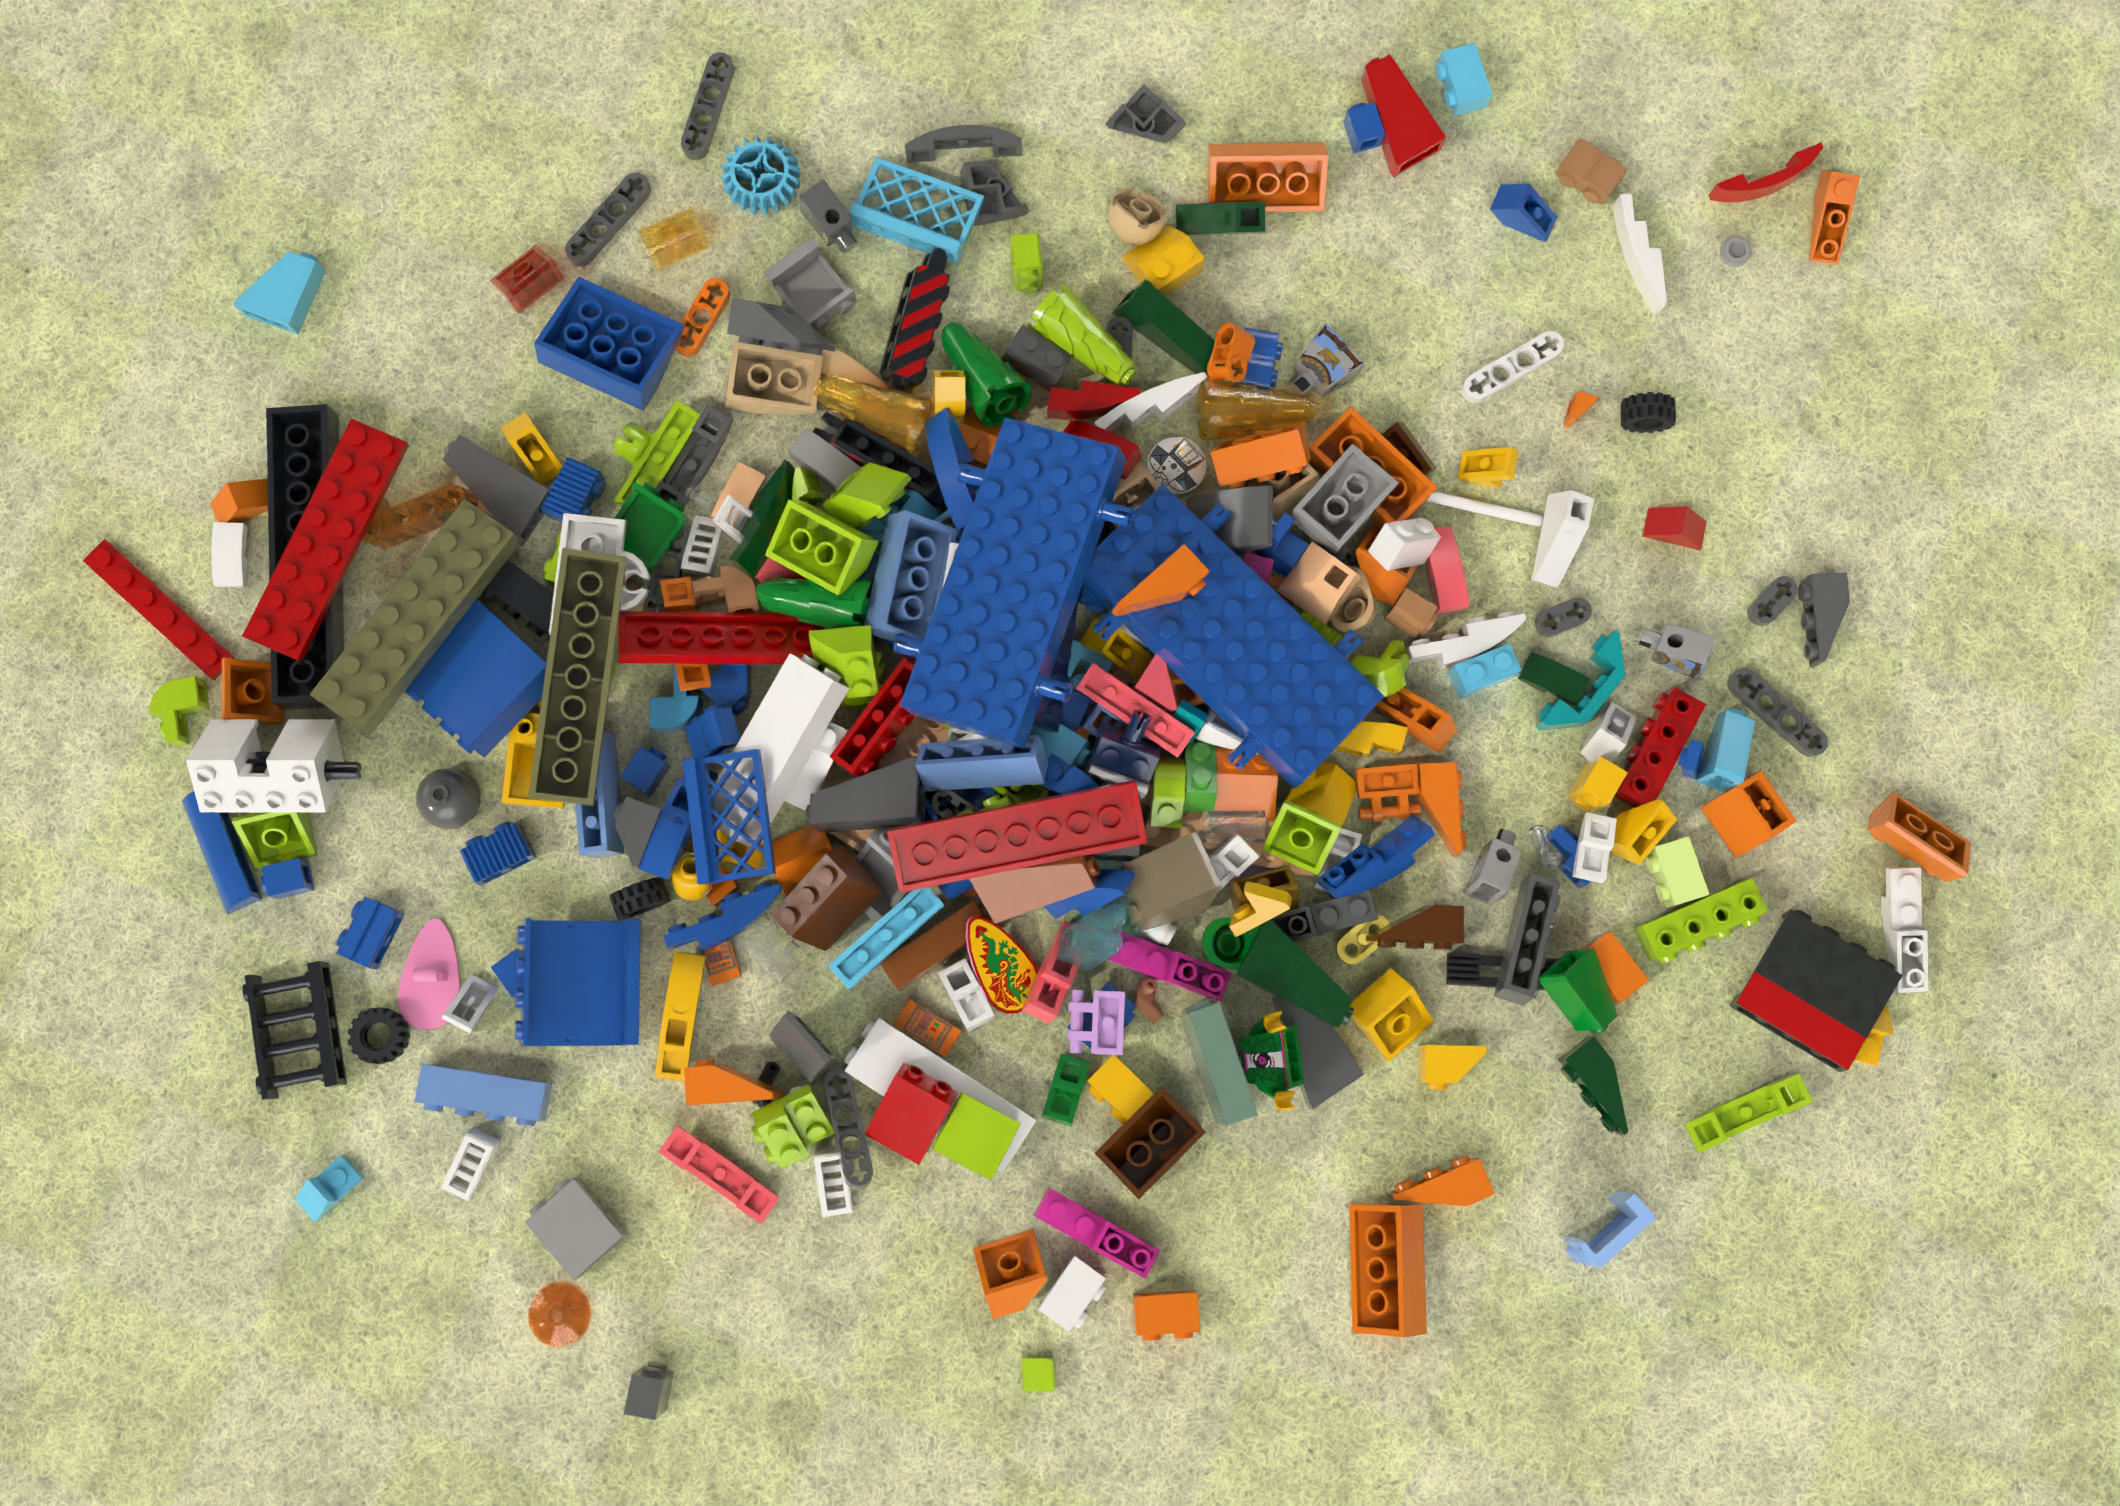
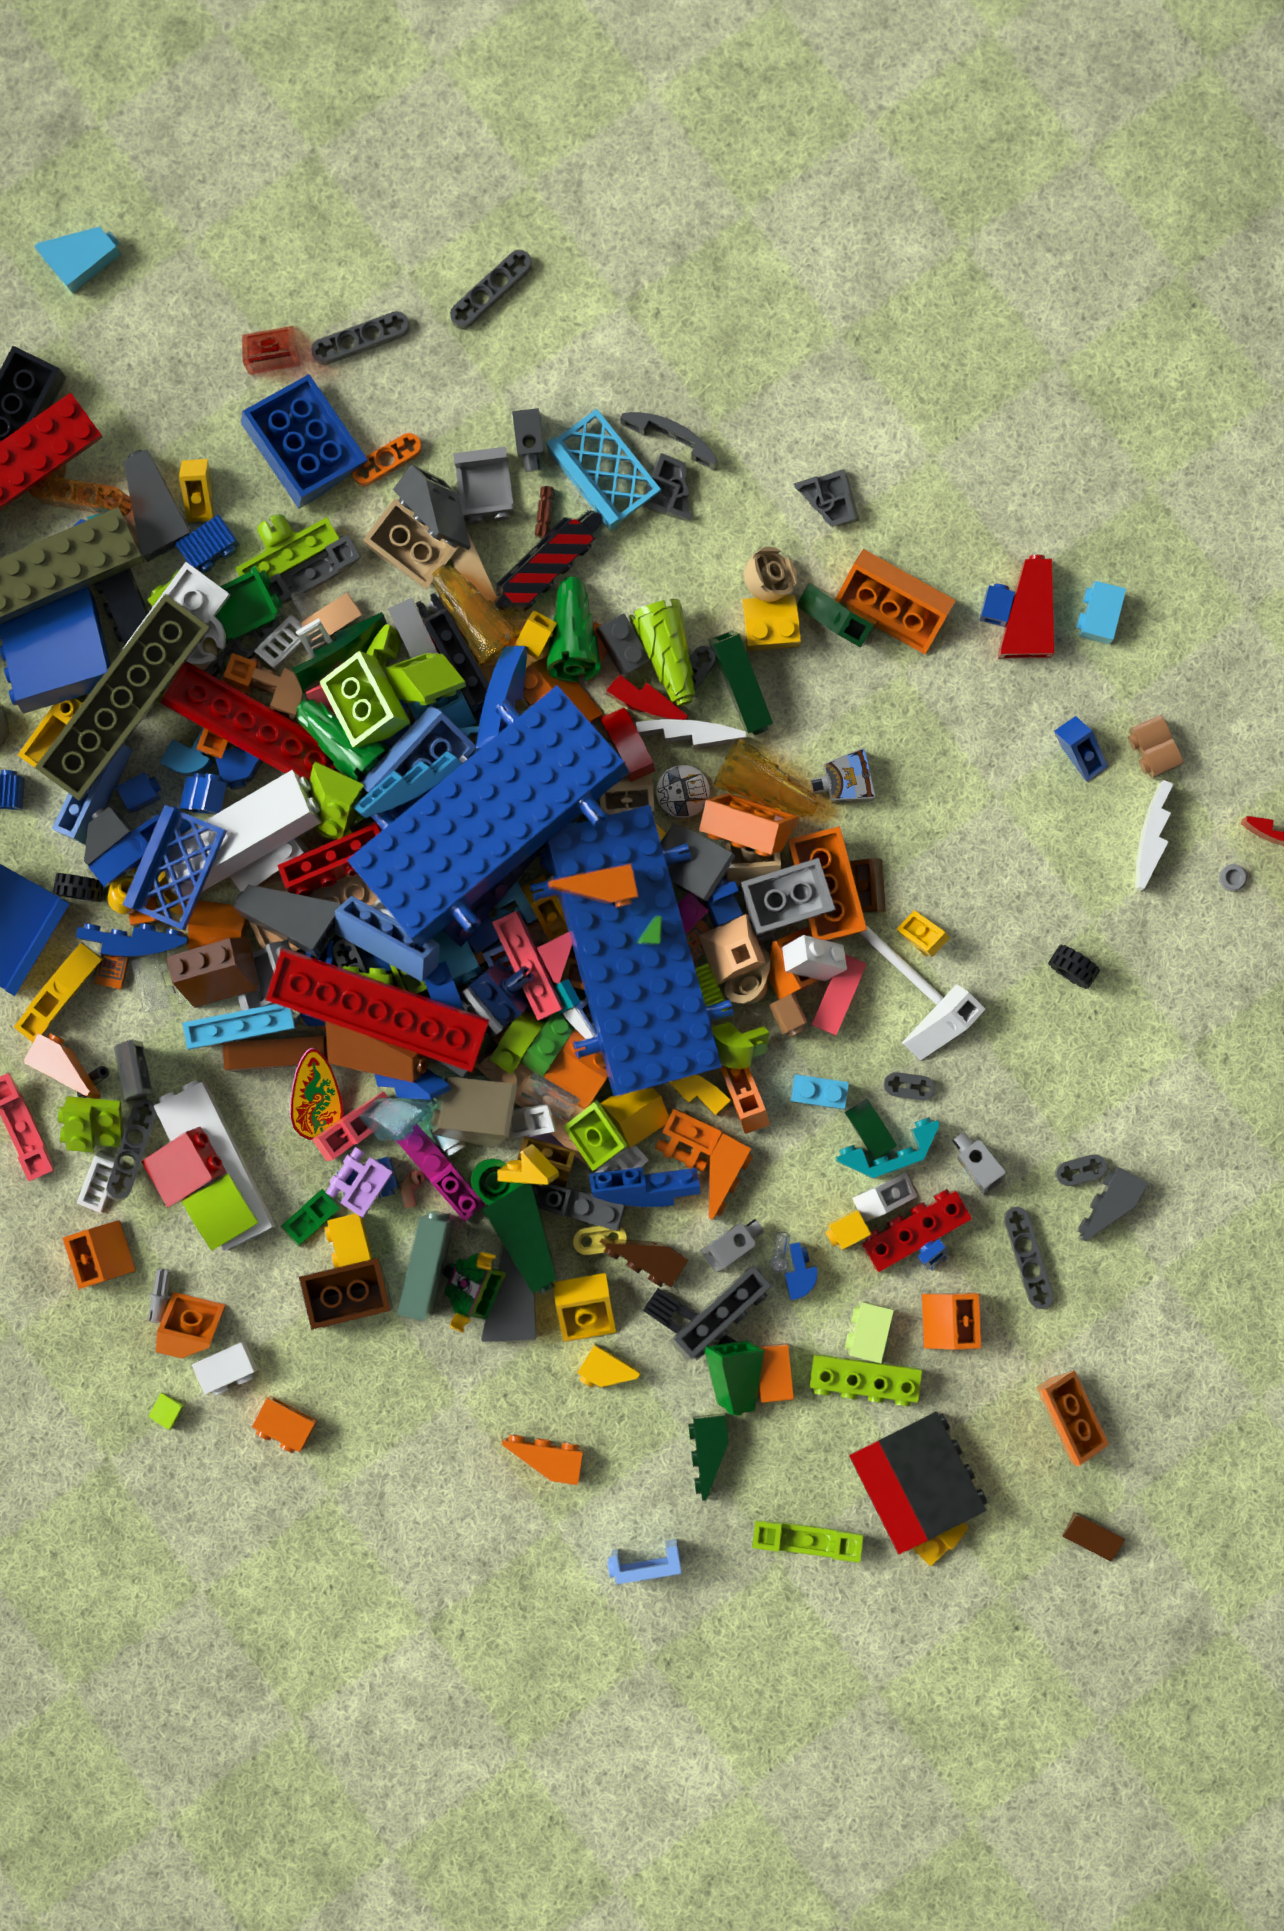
camera: 40 degrees right, 5 degrees up
(674, 239) = (401, 382): clear yellow slope -> none
(739, 167) = (505, 363): medium azure gear -> none
(877, 1254) = (99, 1254): none -> orange slope
(883, 280) = (544, 511): none -> copper axle
(909, 607) = (397, 789): none -> dark azure slope
(927, 1028) = (235, 1110): orange tile -> none
(963, 1260) = (160, 1295): none -> light grey axle
(966, 995) = (276, 1103): white brick -> none
(1026, 262) = (660, 564): lime brick -> none
(1096, 1232) = (269, 1335): dark pink slope -> none
(1232, 352) = (774, 728): orange piece -> none
(1242, 601) = (652, 933): none -> bright green slope
(1261, 362) = (794, 745): blue brick -> none
(1387, 1269) = (467, 1491): orange slope -> none
(1477, 638) = (830, 1065): white slope -> none
(1511, 365) = (994, 862): white beam -> none
(1578, 406) = (1024, 929): orange slope -> none
(1593, 847) = (814, 1275): white slope -> none
(1641, 830) = (858, 1283): yellow slope -> none
(1675, 526) = (1042, 1068): red slope -> none
(1727, 751) = (967, 1262): medium azure slope -> none
(1903, 930) = (1017, 1478): white slope -> none
(2009, 942) = (1093, 1537): none -> reddish brown slope

